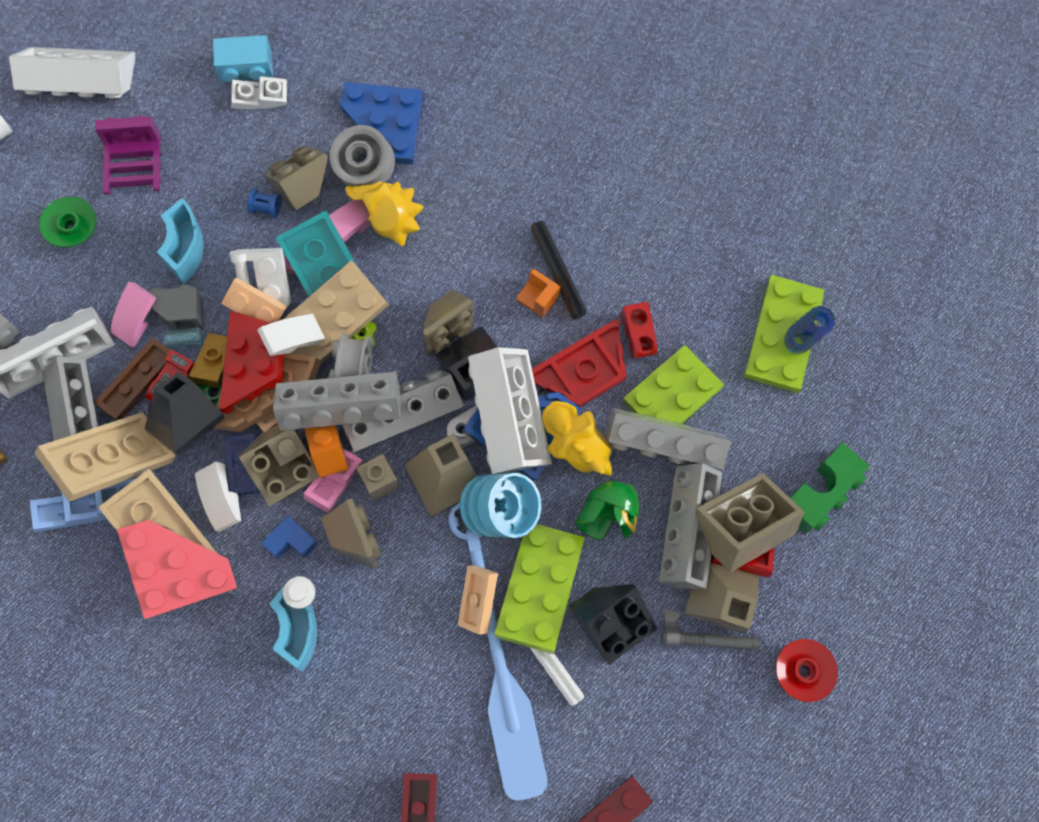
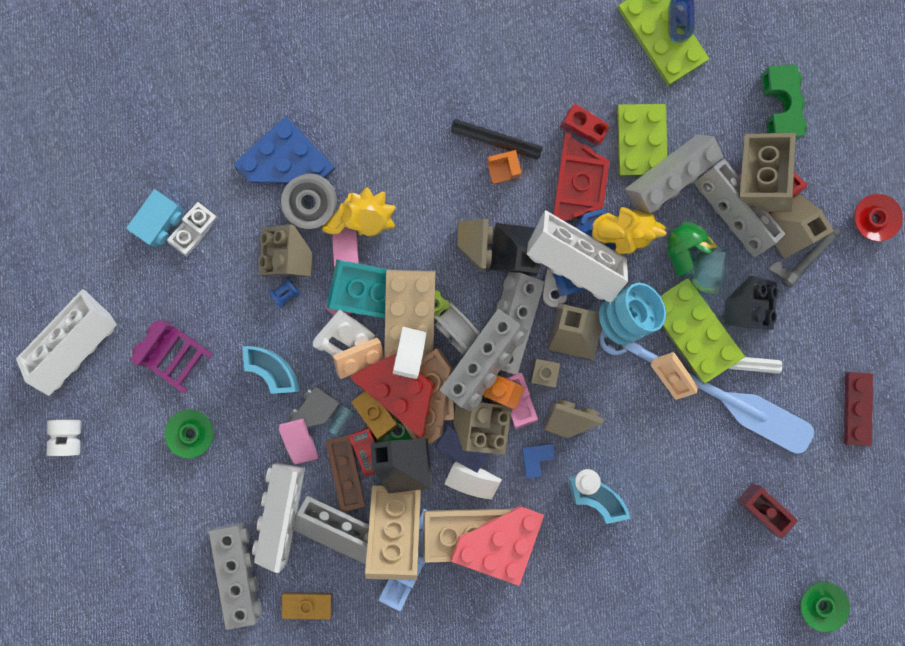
camera: 45 degrees left, 15 degrees up
(608, 549) = (709, 271): none -> clear light blue cylinder

